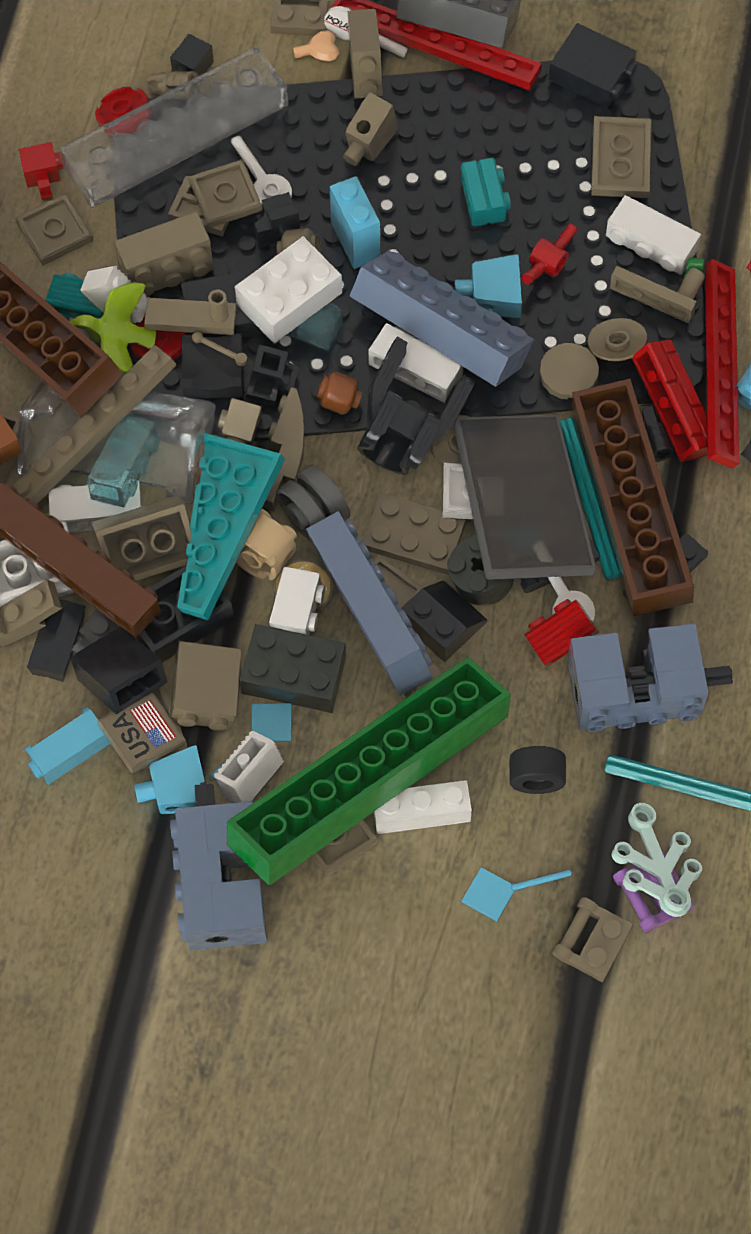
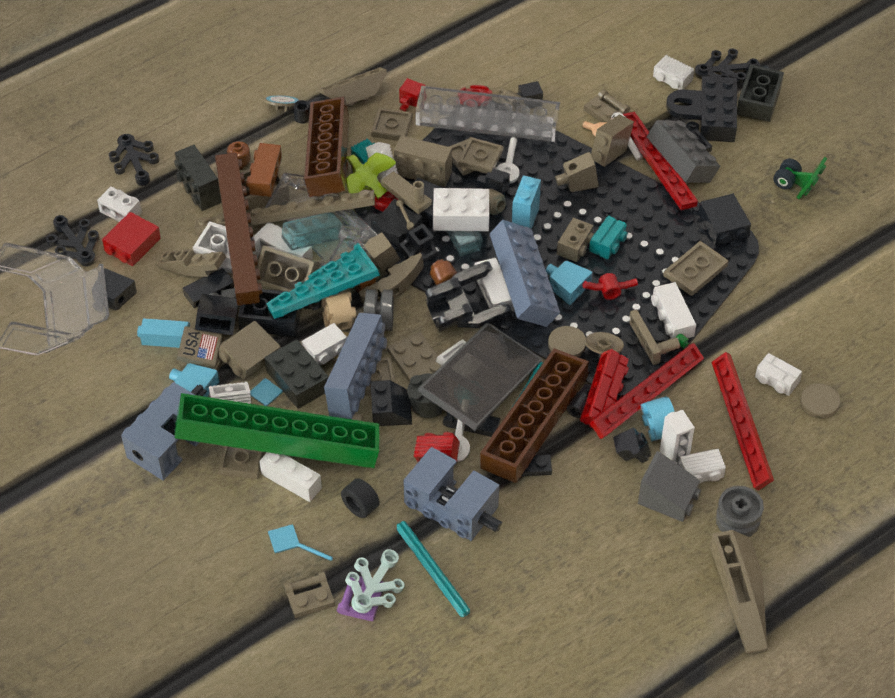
camera: 40 degrees right, 15 degrees down
(449, 224) = (575, 240): none -> dark tan brick

